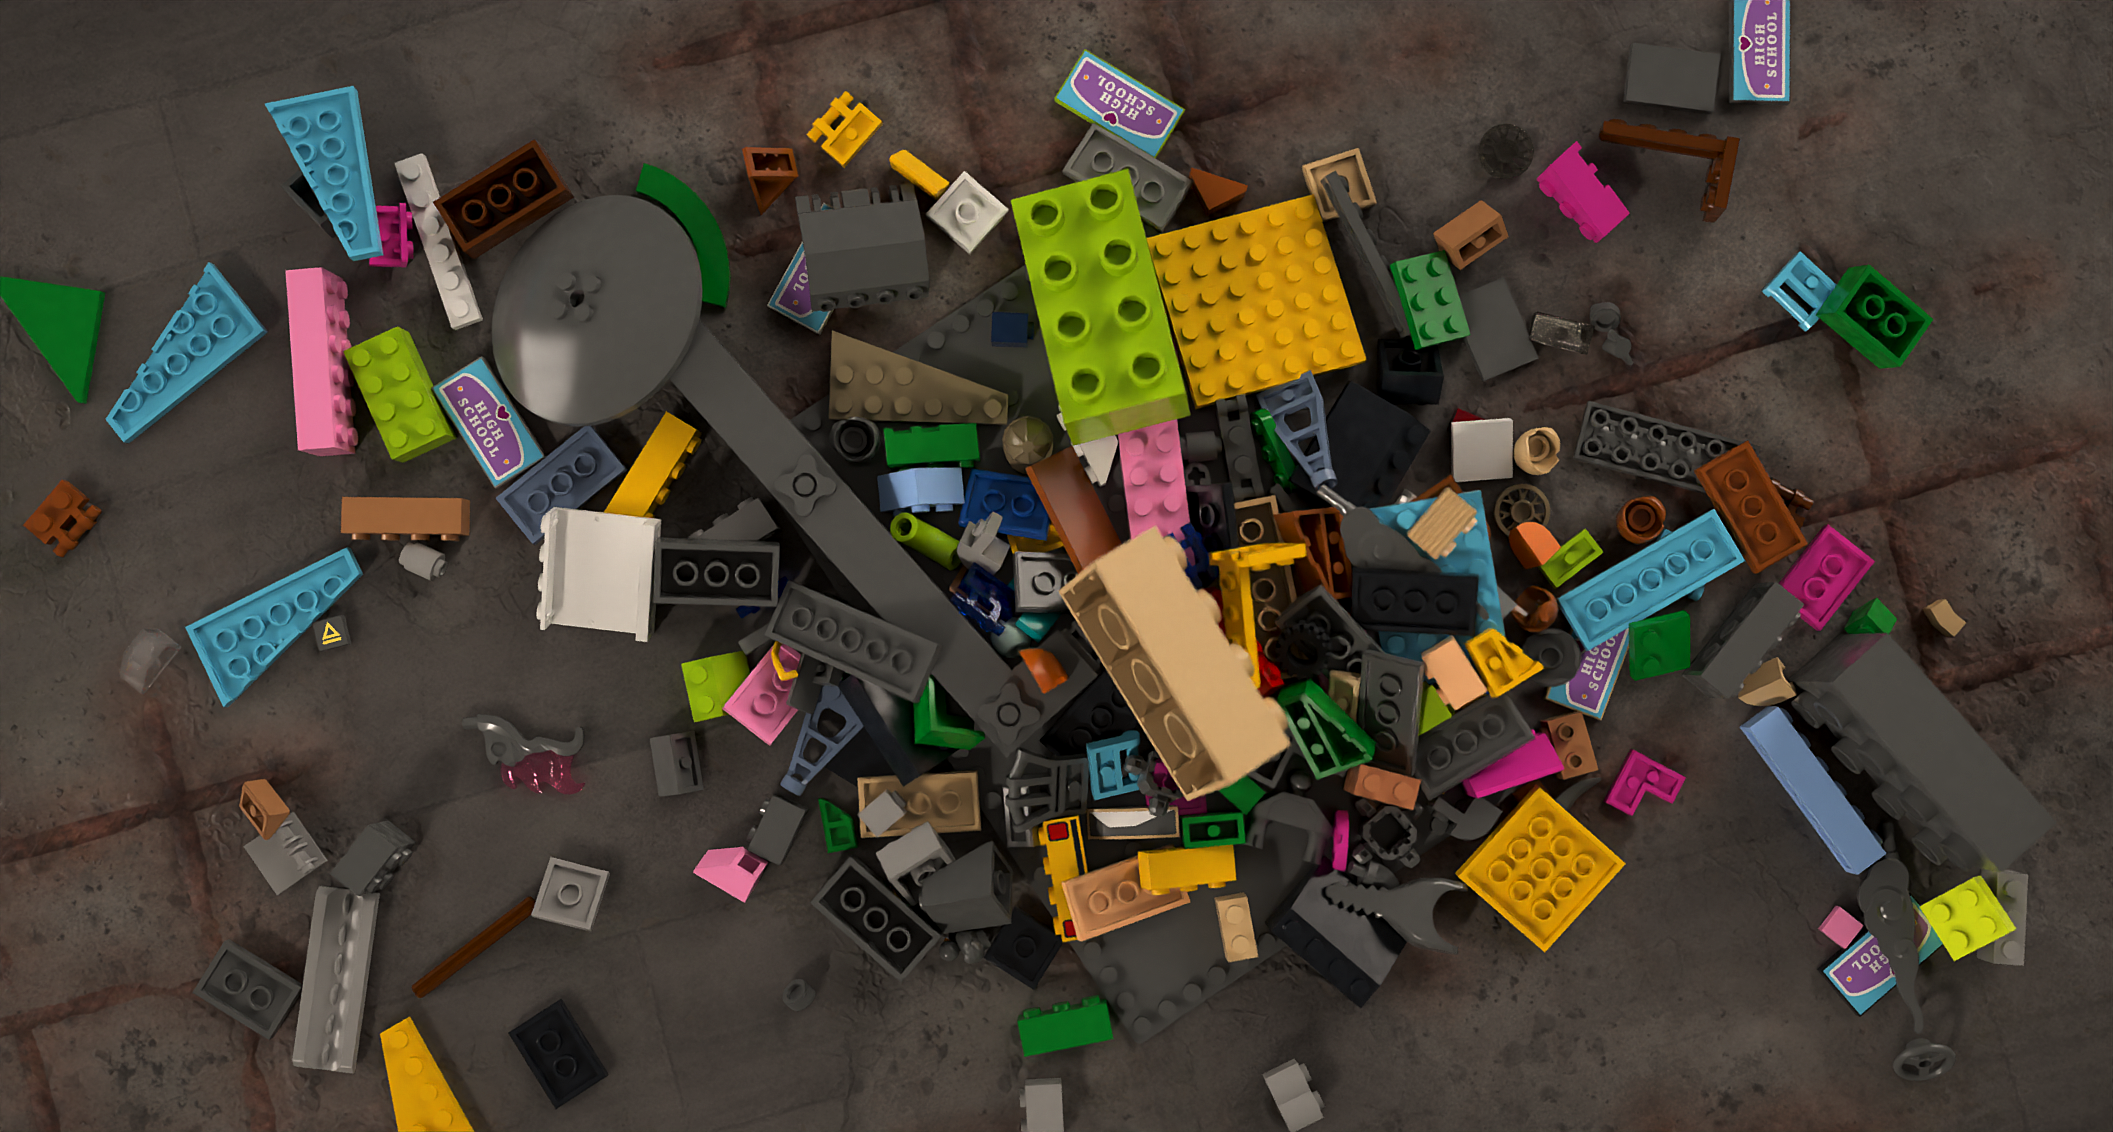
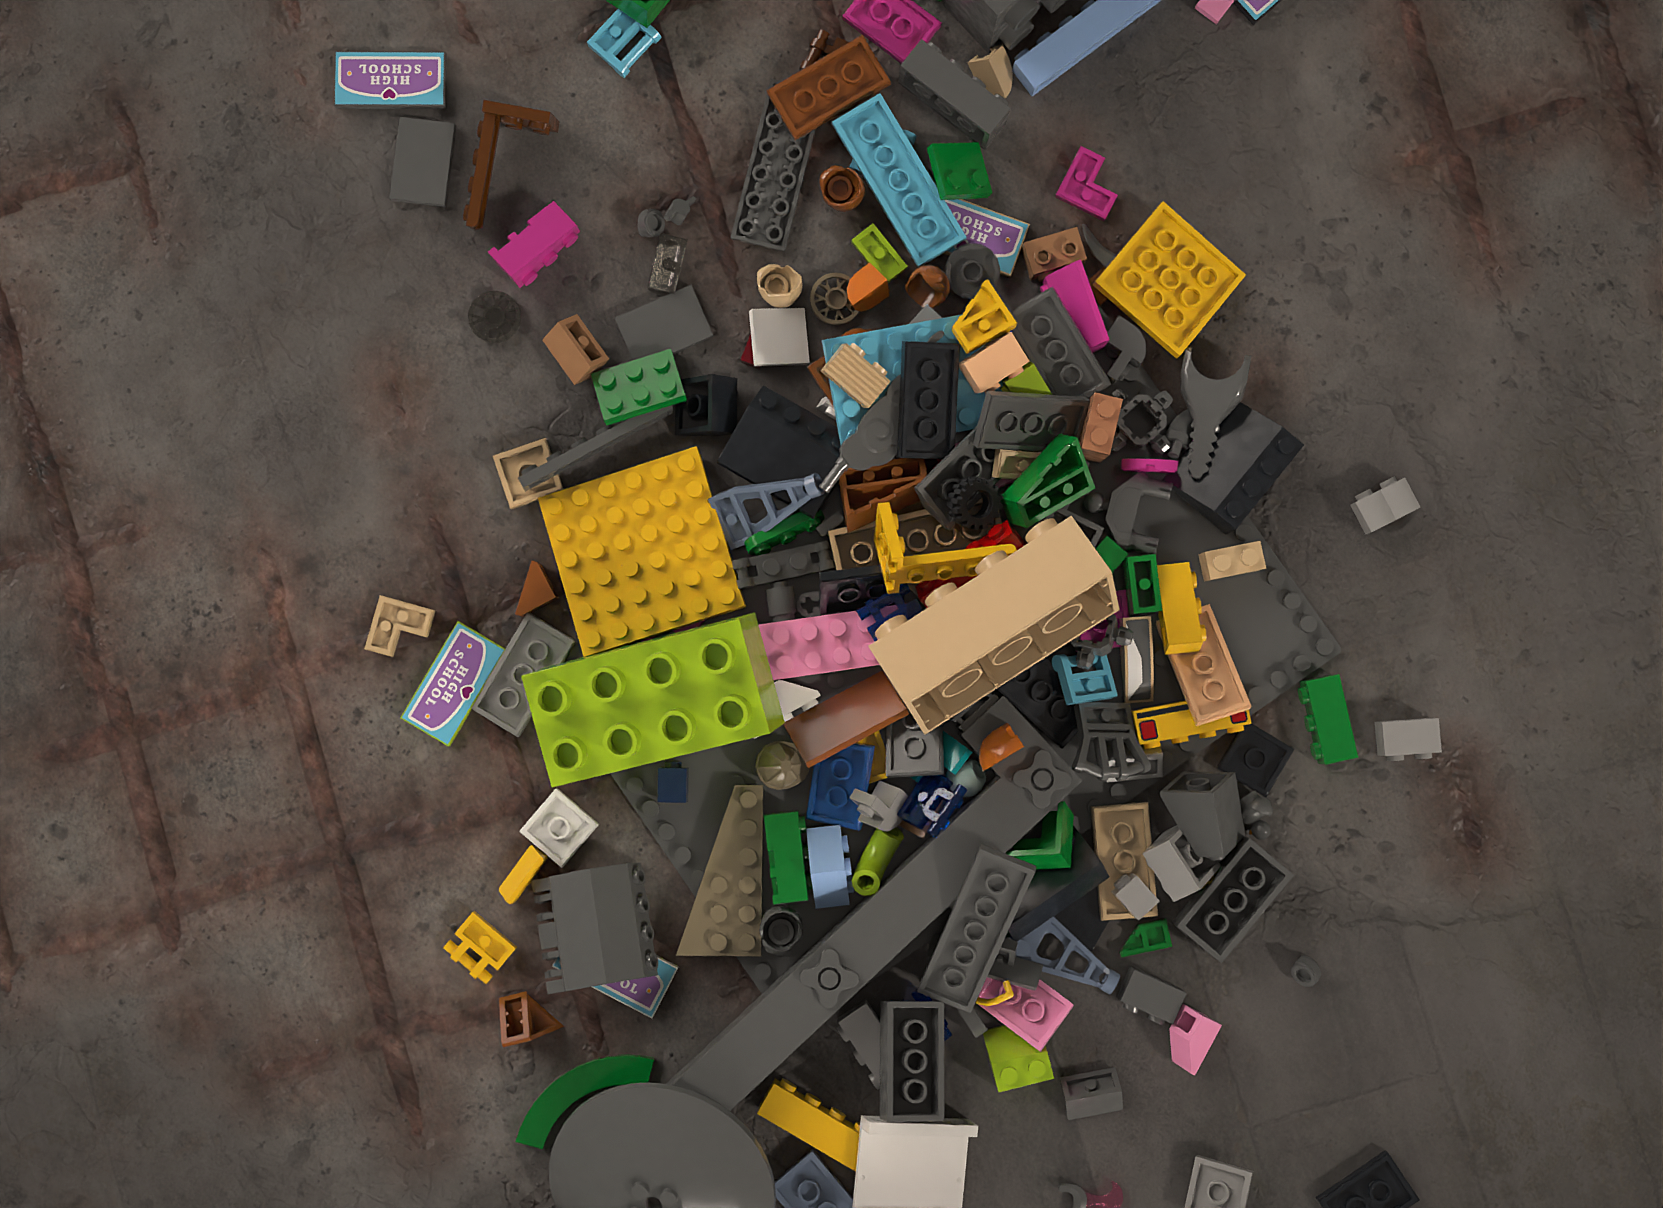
camera: 90 degrees left, 0 degrees up
(1189, 43) = (391, 618): none -> tan tile

